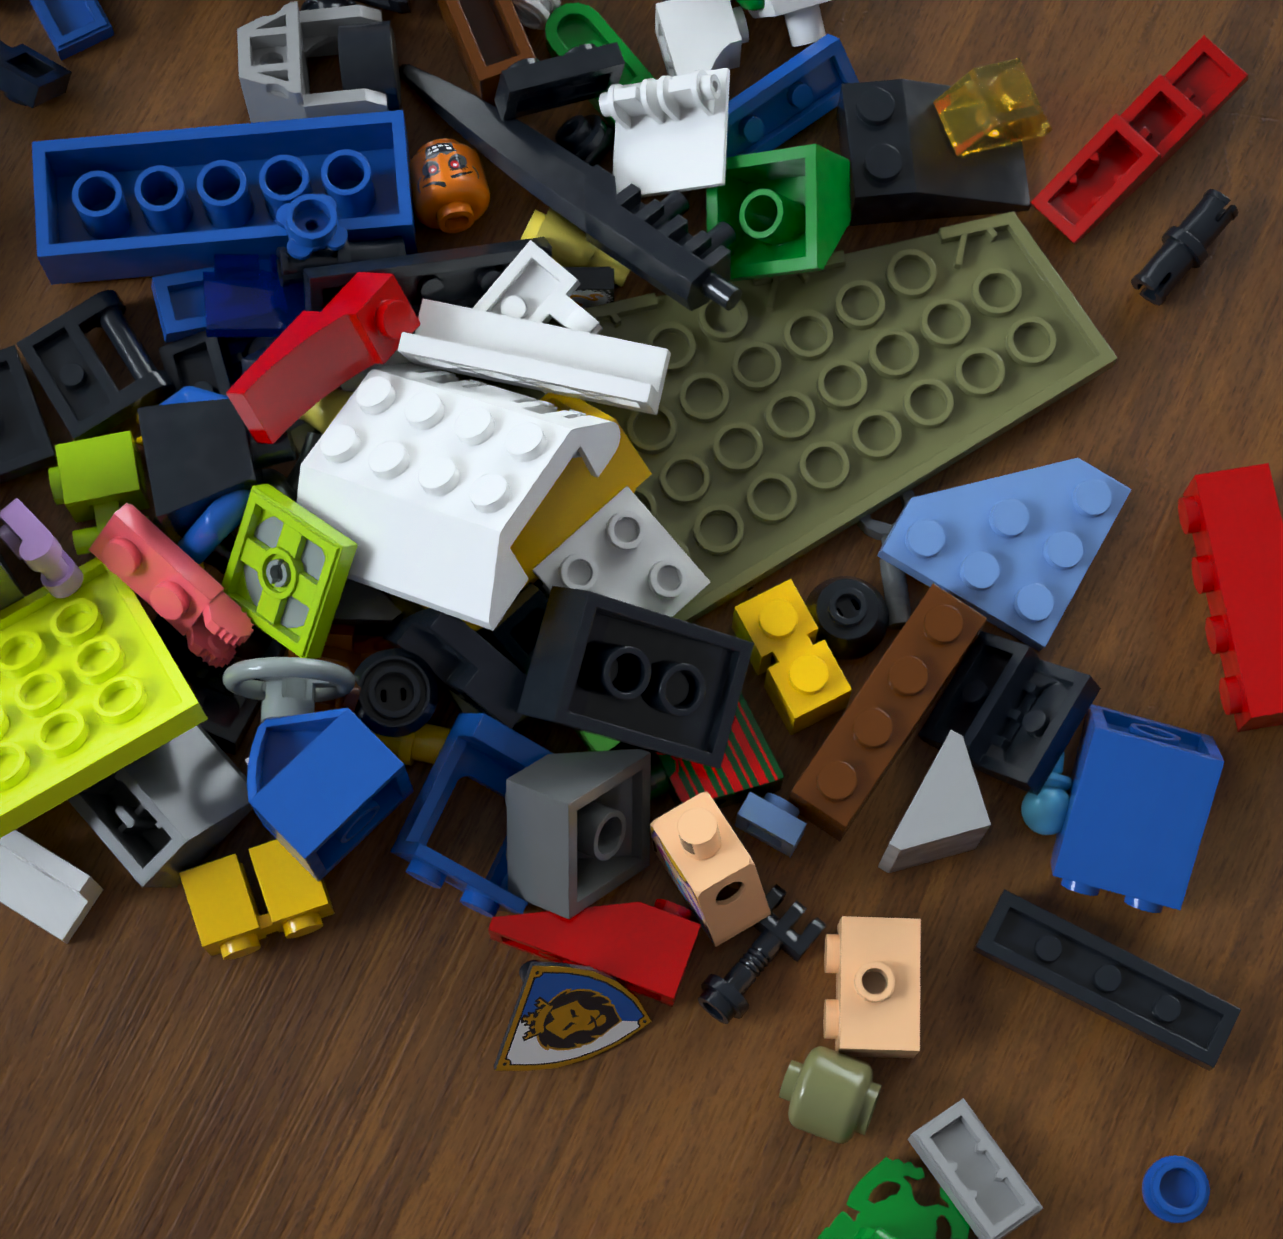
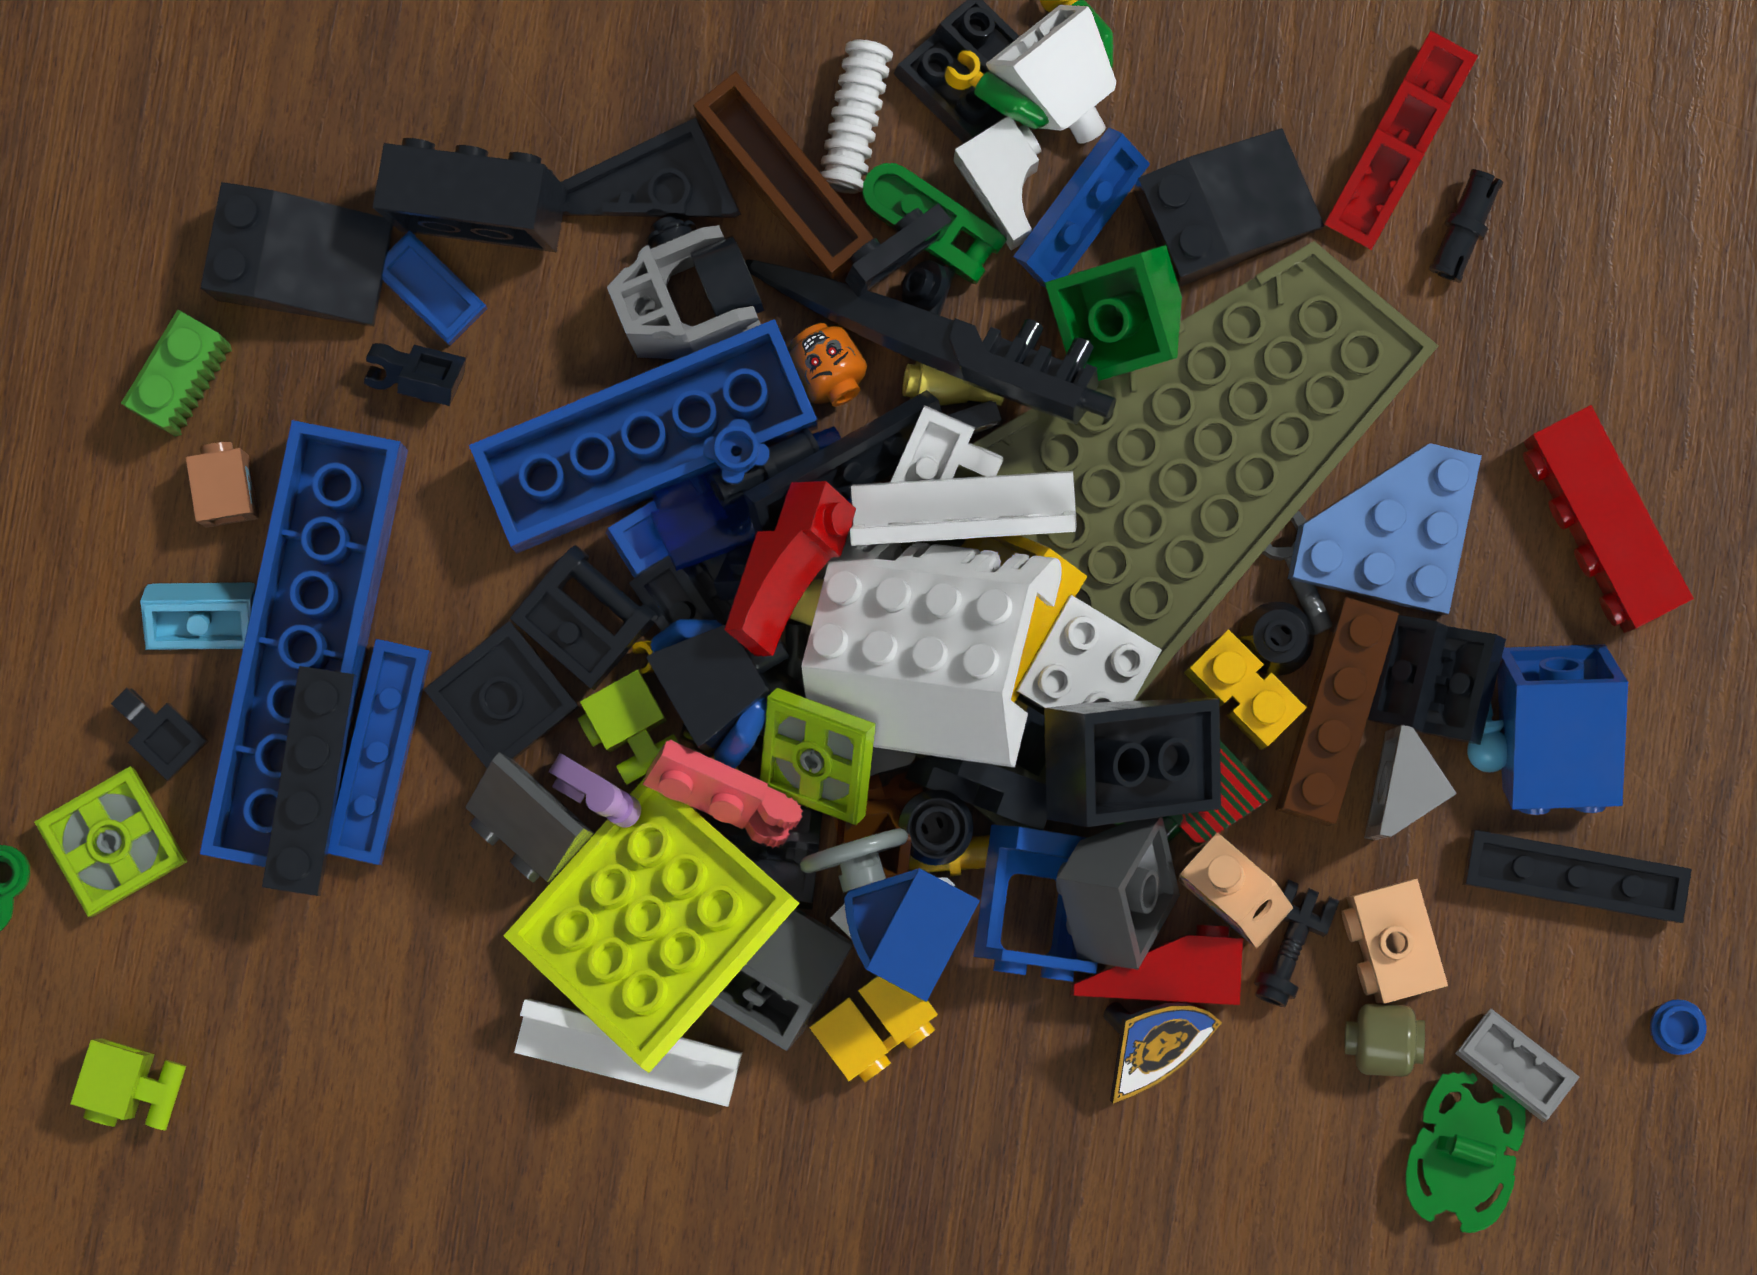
camera: 20 degrees left, 10 degrees up
(670, 131) = (1006, 267): white hinge -> none
(771, 821) = (1271, 830): medium blue plate -> none
(992, 108) = (1272, 159): clear yellow slope -> none

